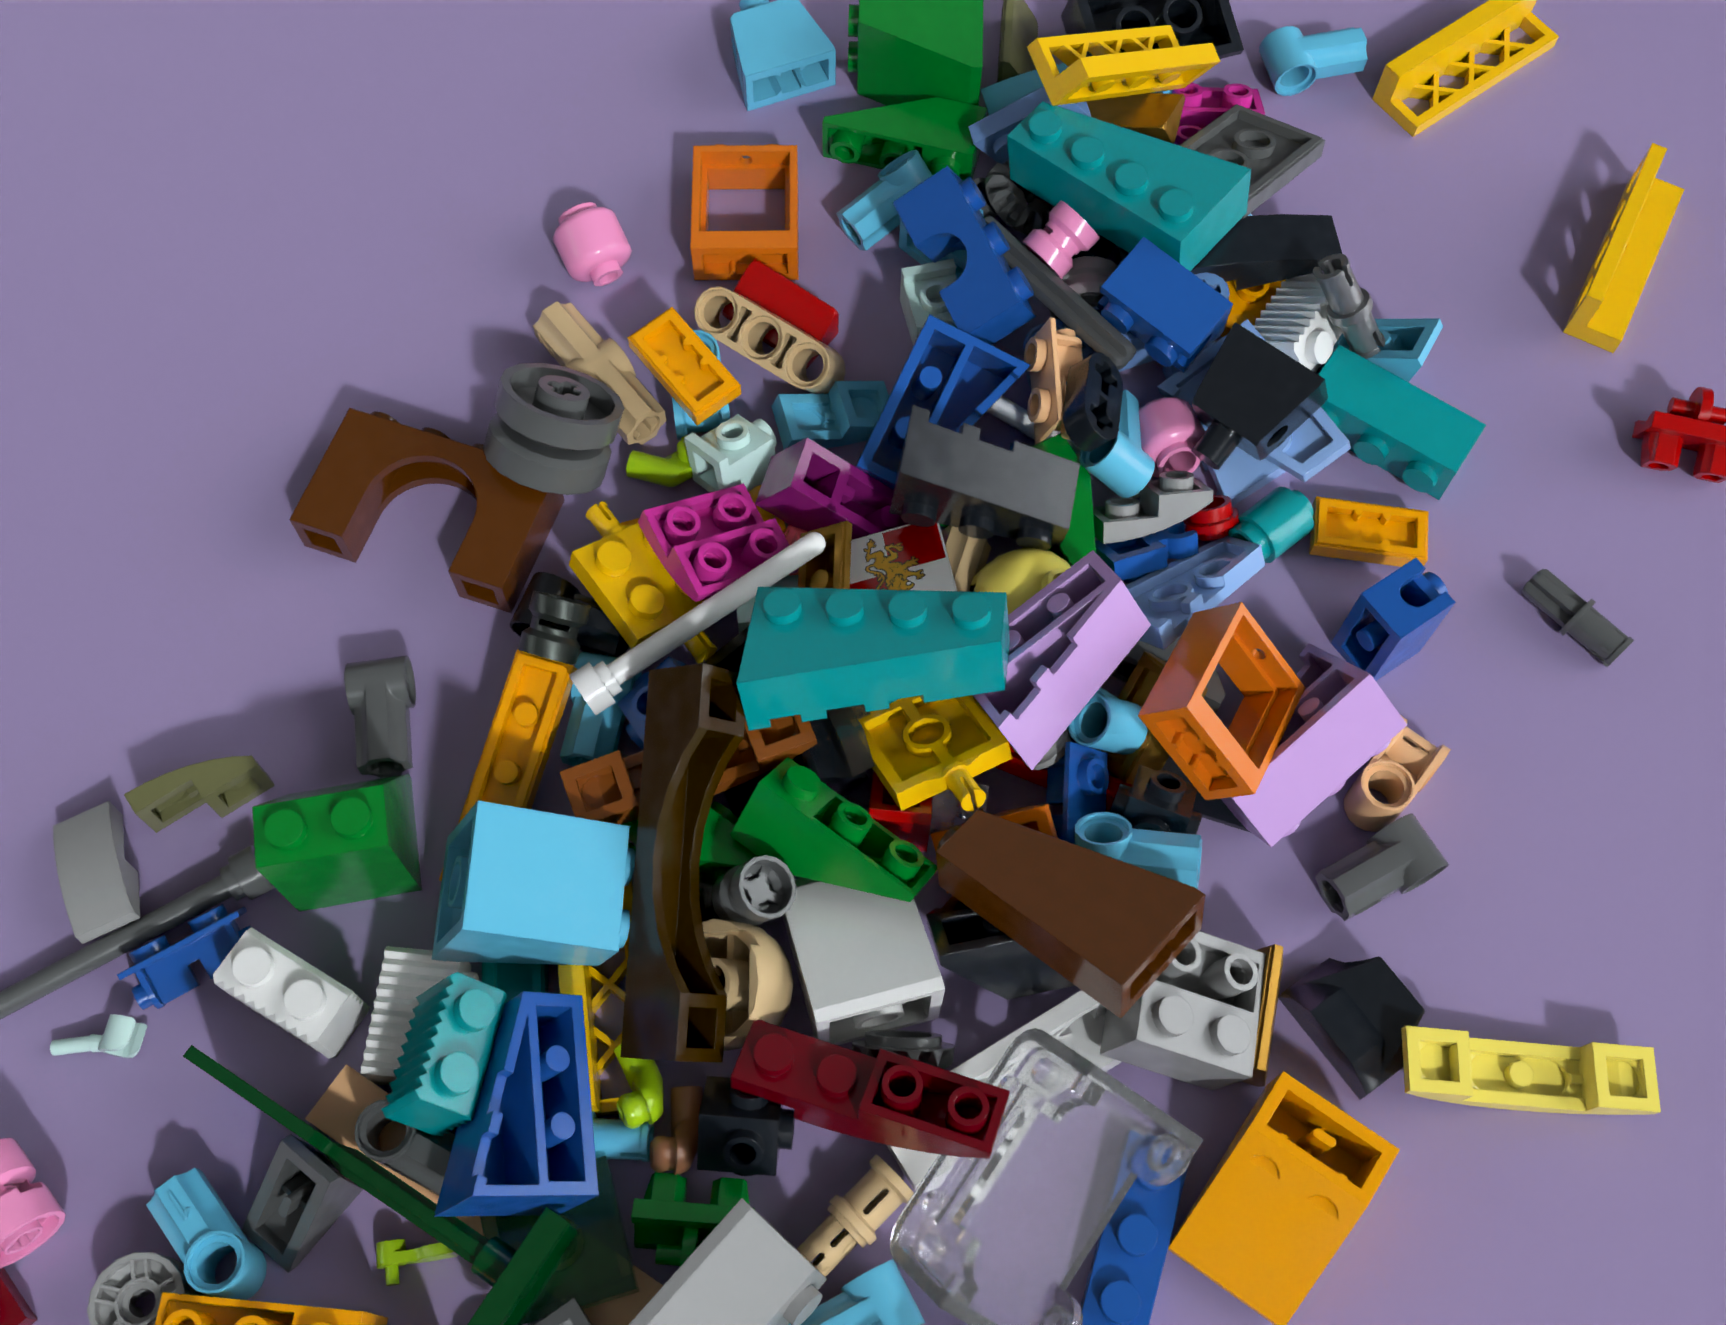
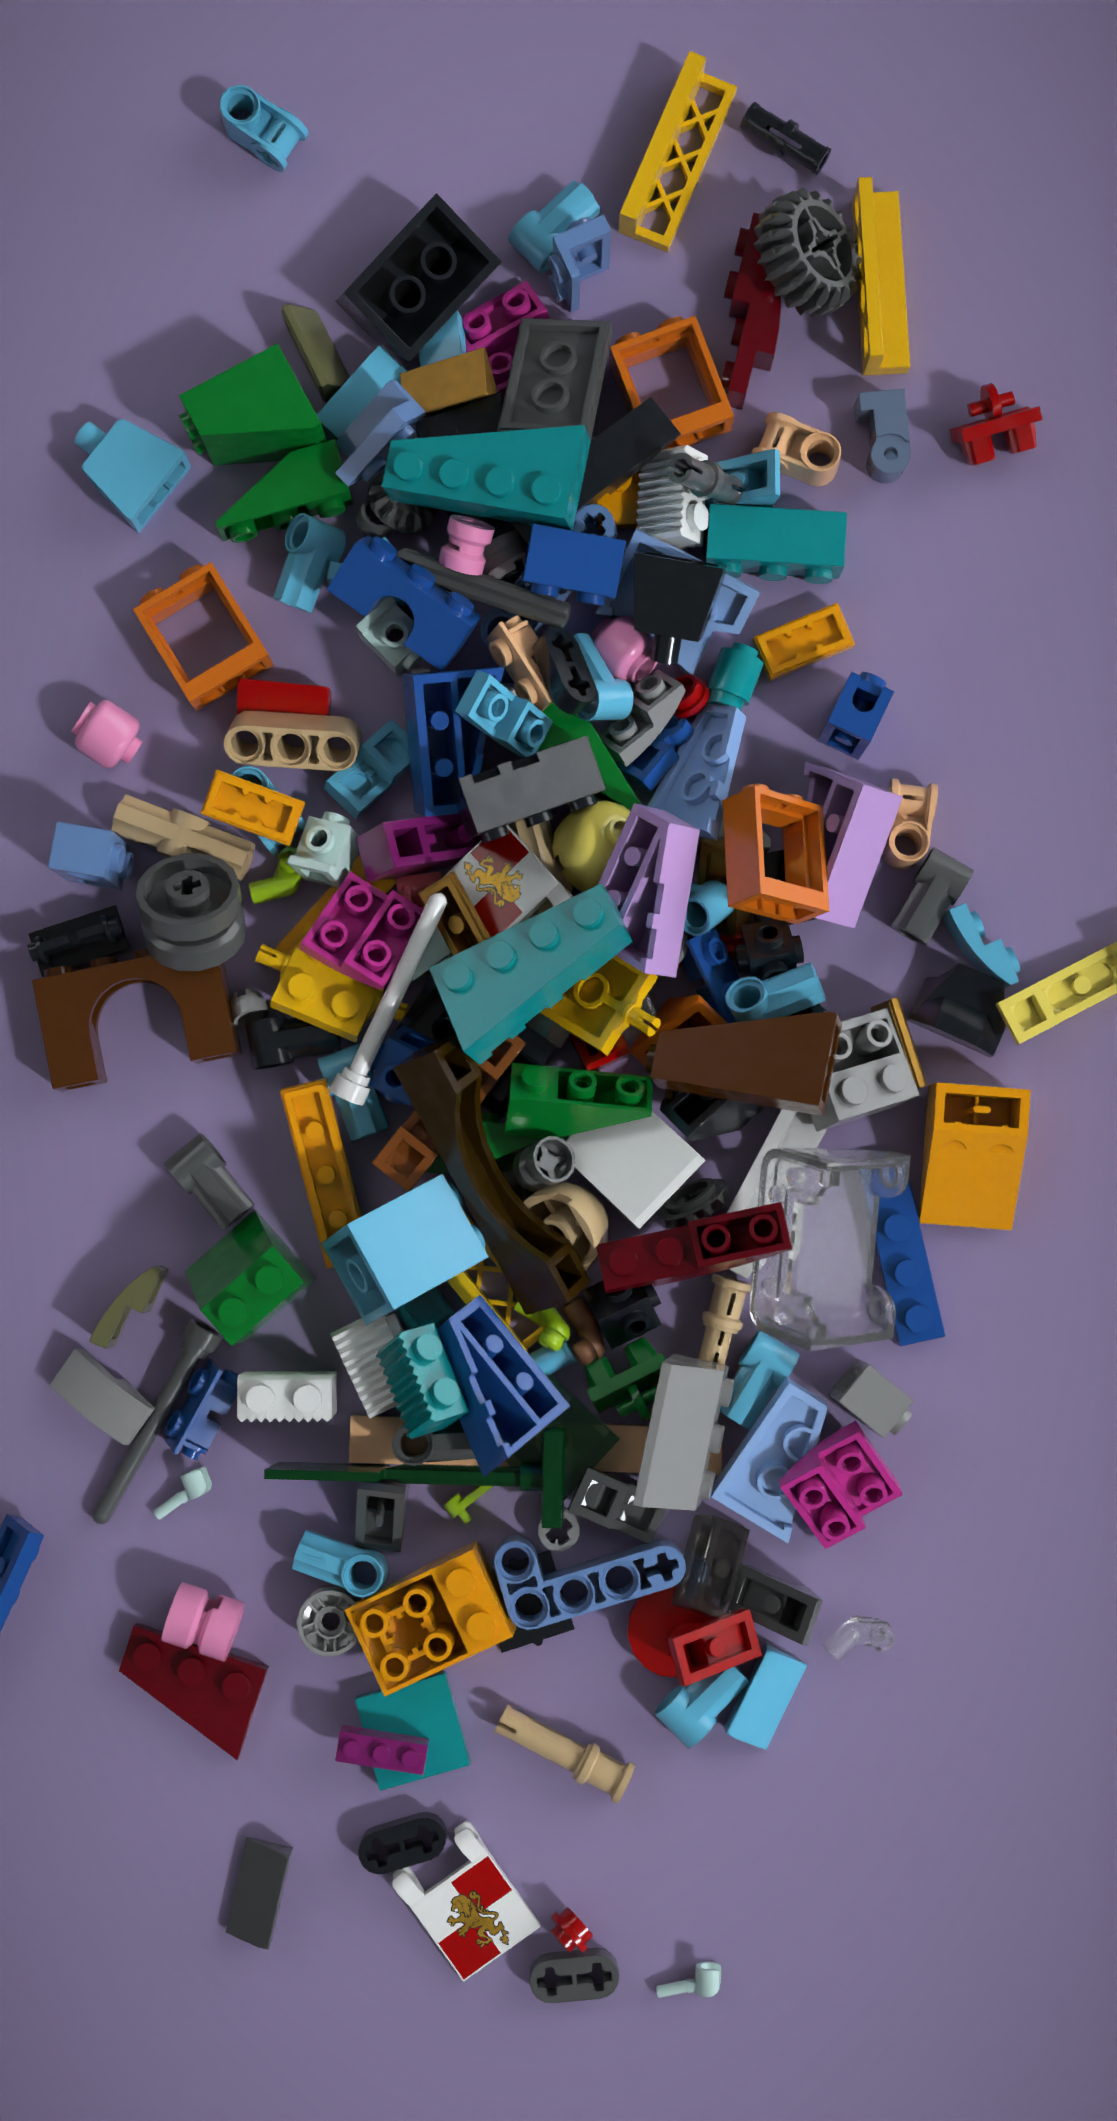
camera: 30 degrees left, 20 degrees up
(421, 407) = (78, 940): none -> black hinge
(489, 323) = (90, 856): none -> medium blue brick
(544, 555) = (248, 1007): none -> light grey hinge
(550, 640) = (294, 1060): pearl dark grey wheel -> none
(997, 399) = (503, 715): none -> medium azure slope
(1116, 73) = (440, 363): yellow fence -> none
(1325, 77) = (578, 255): none -> medium blue bracket
(1378, 197) = (668, 337): none -> orange window
(1423, 972) = (988, 959): none -> medium azure slope
(1466, 358) = (796, 444): none -> light nougat piece
(1476, 216) = (756, 316): none -> dark red slope
(1564, 182) = (807, 252): none -> dark grey gear
(1571, 372) = (887, 432): none -> sand blue leg
(1576, 616) = (976, 625): dark grey axle -> none
(1587, 96) = (812, 153): none -> black pin

